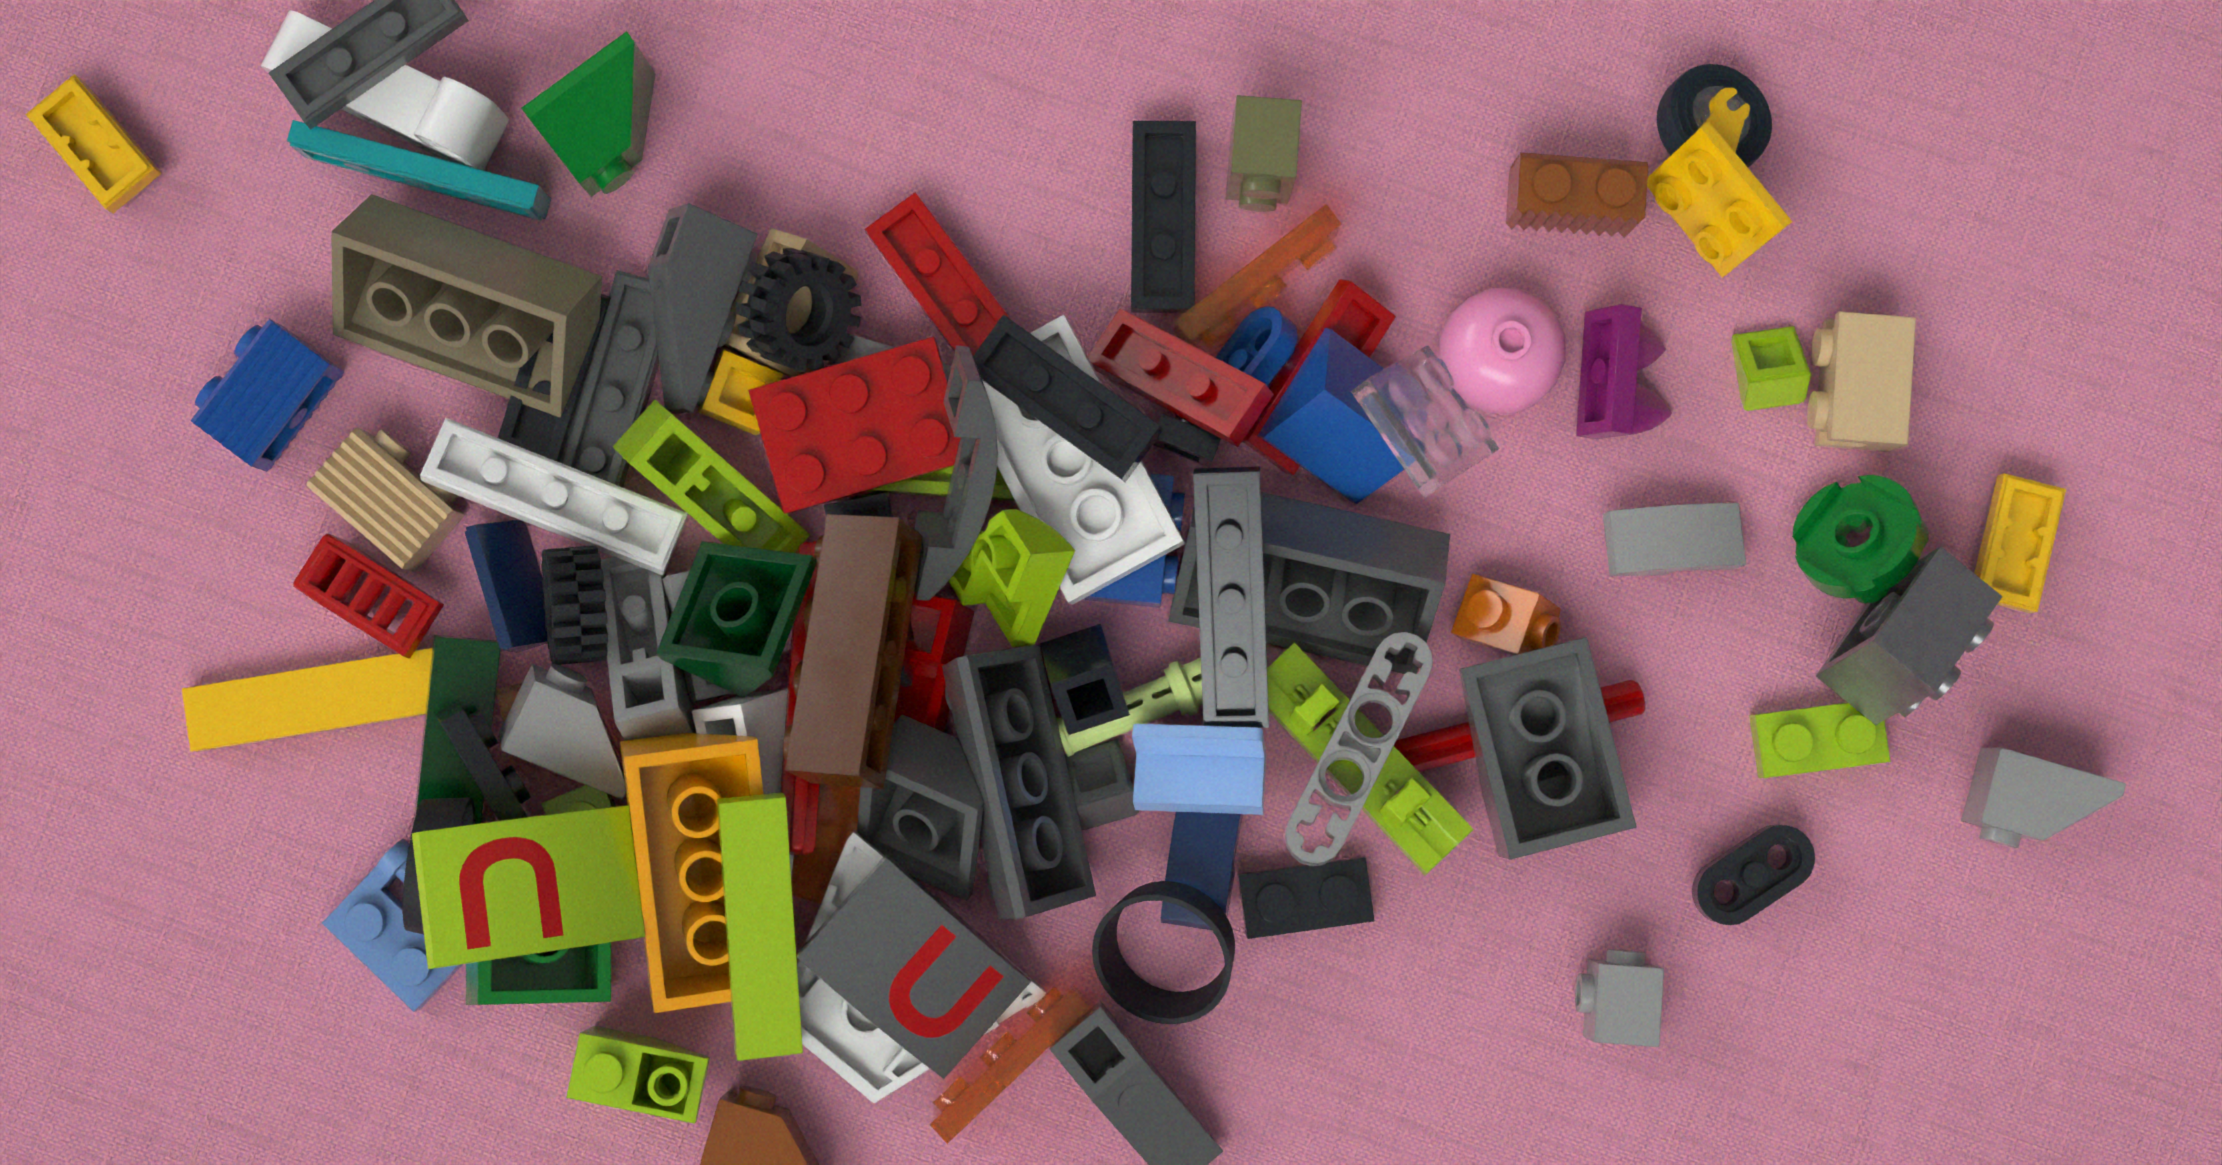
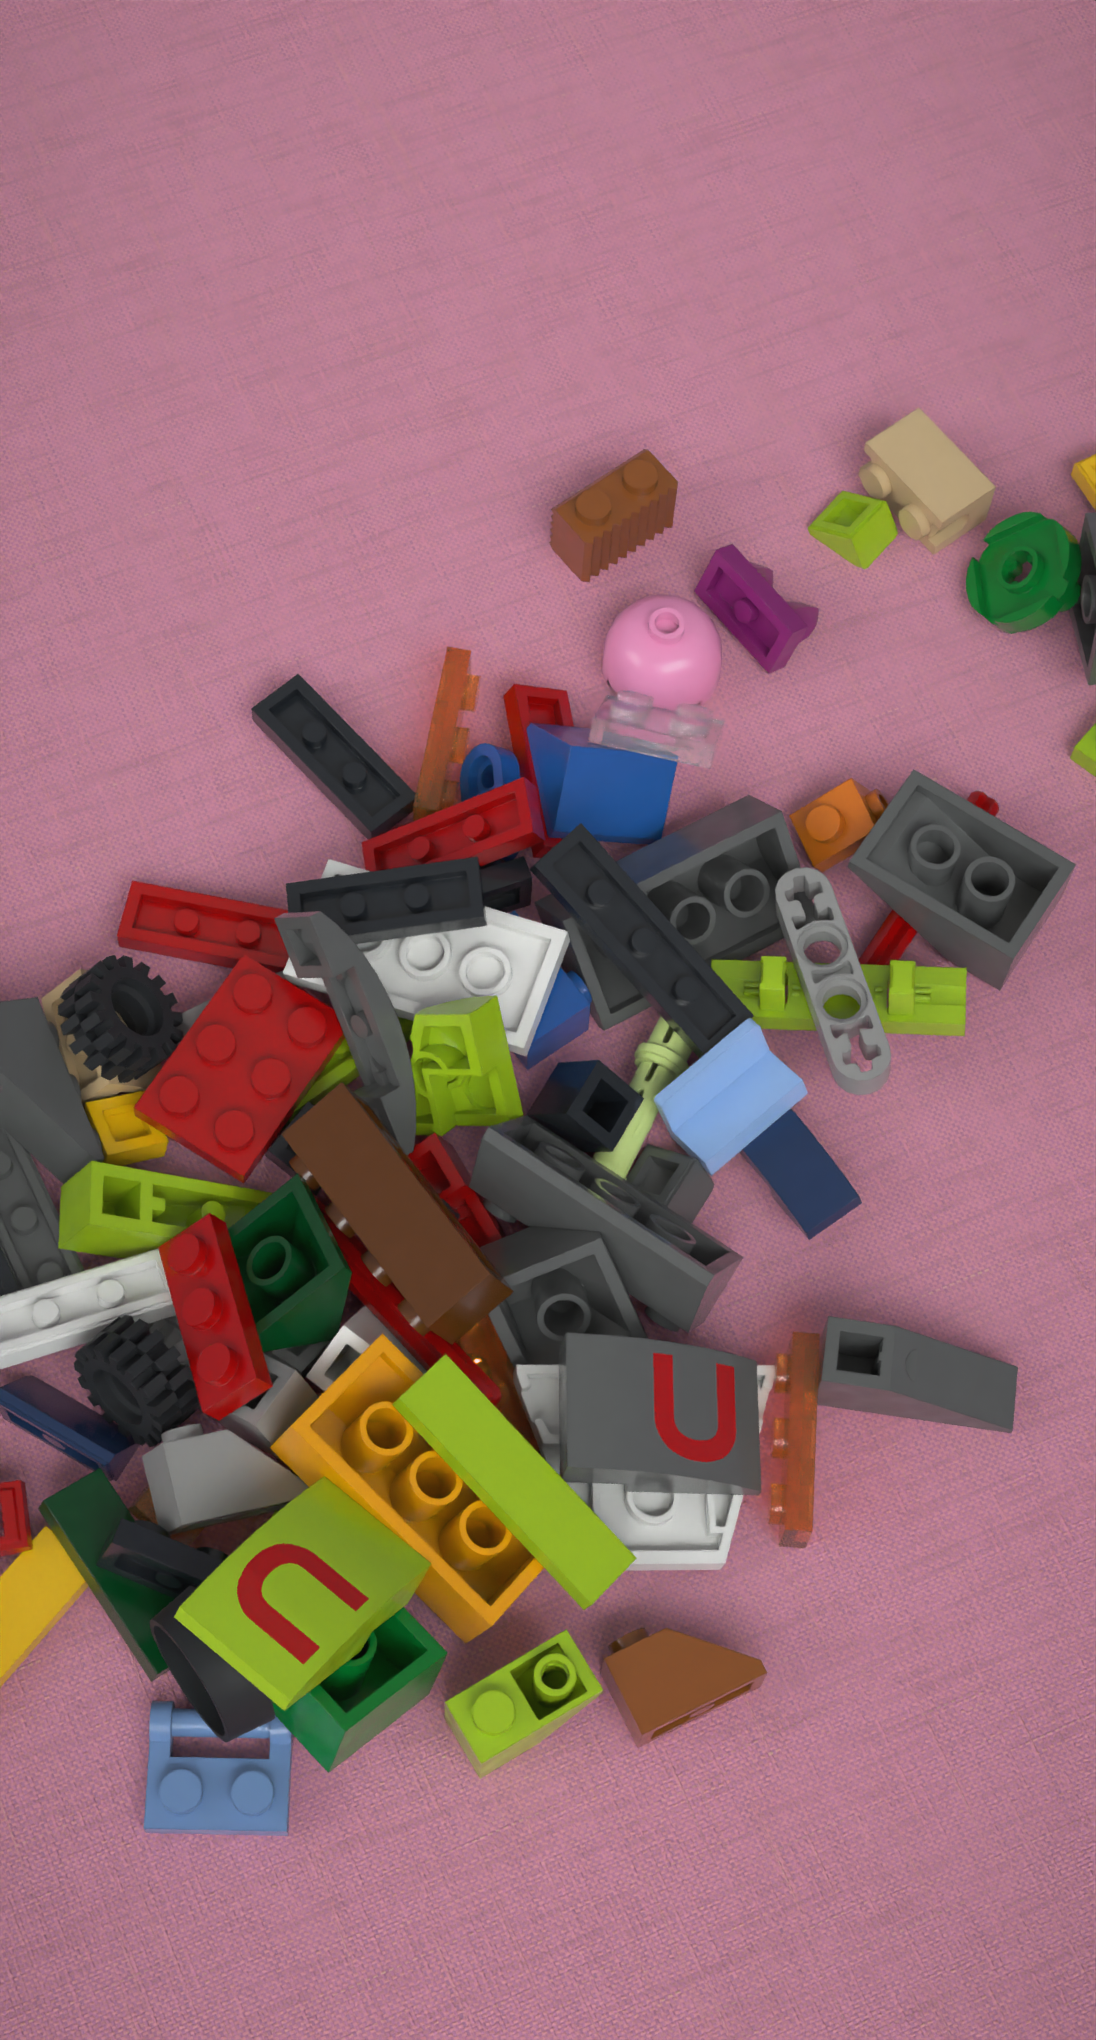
camera: 45 degrees left, 20 degrees down
(661, 611) = (214, 1317): none -> red plate
(1138, 995) = (885, 1283): black tyre -> none
(1263, 152) = (368, 647): olive brick -> none
(1305, 898) = (894, 1136): black plate -> none
(1674, 539) = (902, 677): light grey slope -> none
(1714, 130) = (696, 430): yellow plate -> none

